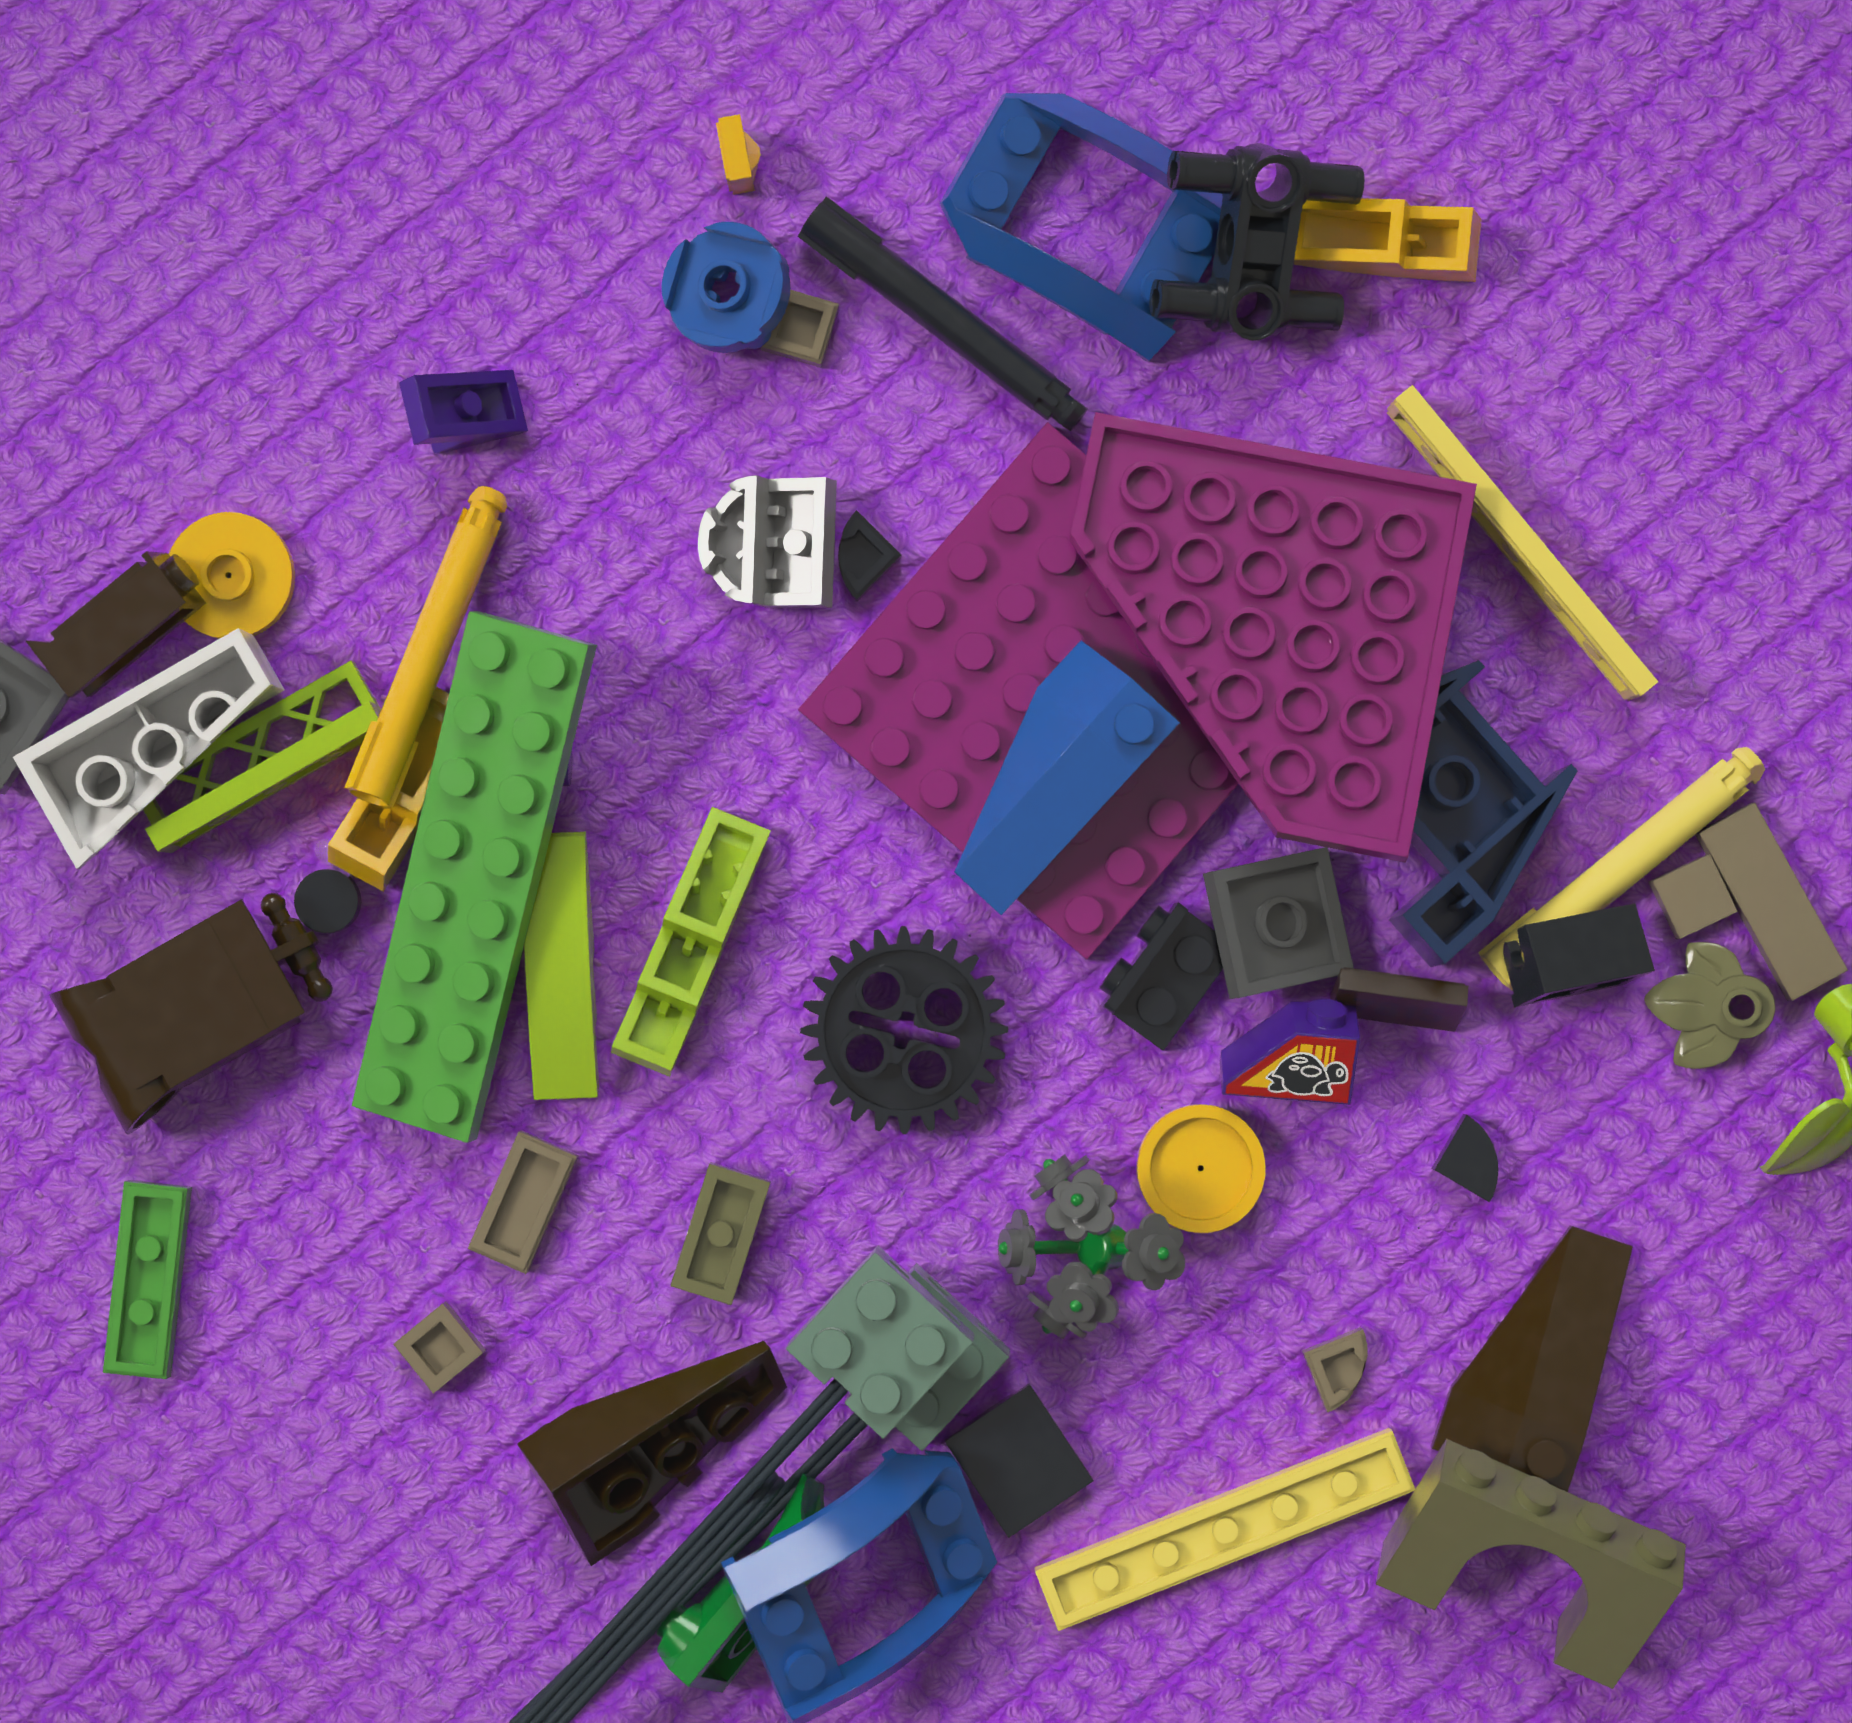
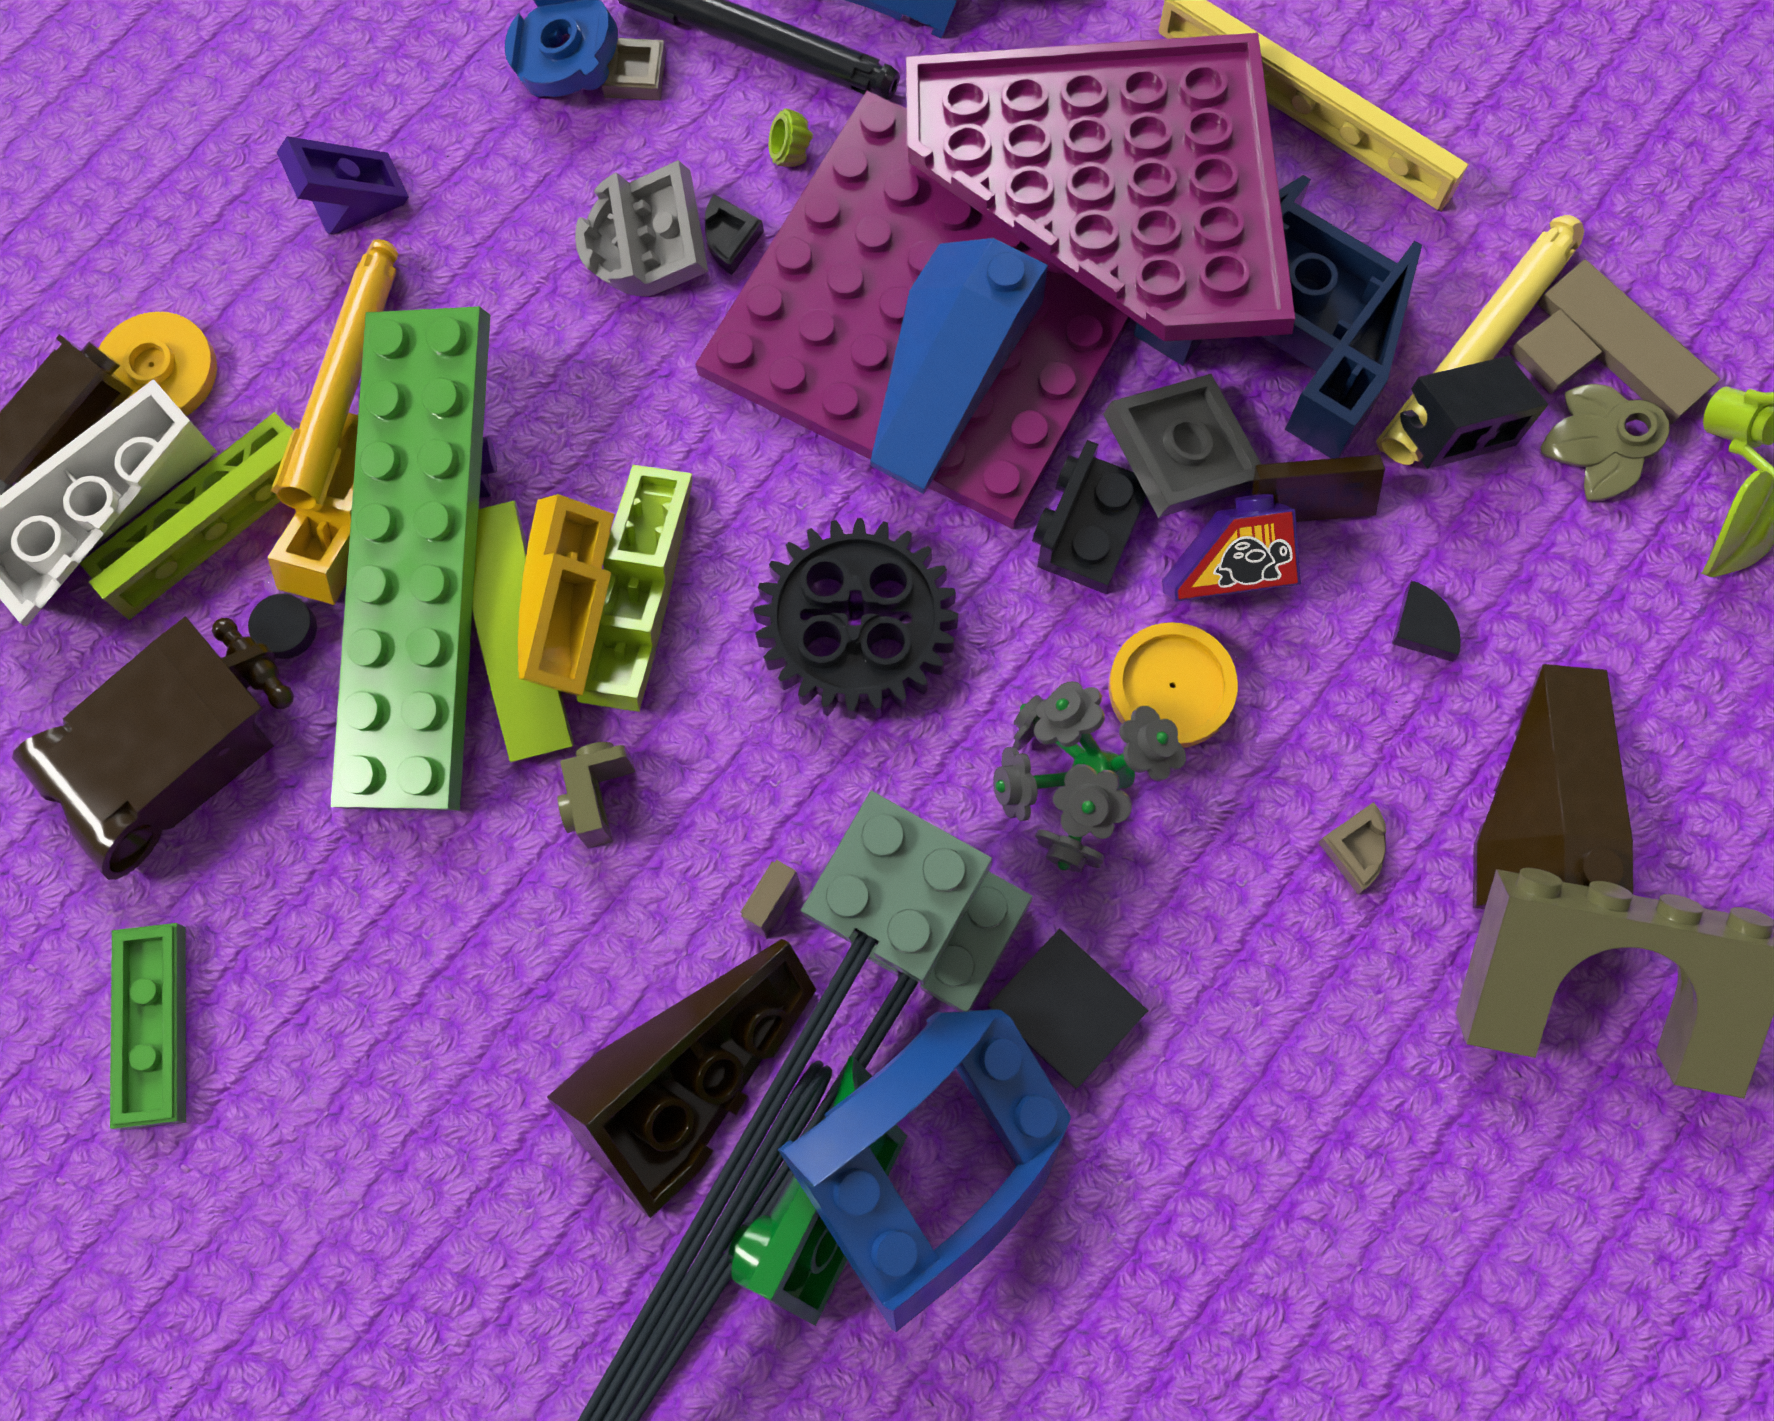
camera: 10 degrees left, 15 degrees down
(439, 1347) = (456, 1027): dark tan tile -> none
(523, 1202) = (517, 866): dark tan tile -> none
(598, 1162) = (583, 804): none -> olive bracket
(617, 952) = (562, 593): none -> yellow slope
(720, 1233) = (717, 848): olive plate -> none
(760, 1296) = (770, 898): none -> dark tan tile
(951, 460) = (789, 138): none -> lime piece
(1224, 1529) = (1290, 1035): light yellow tile -> none

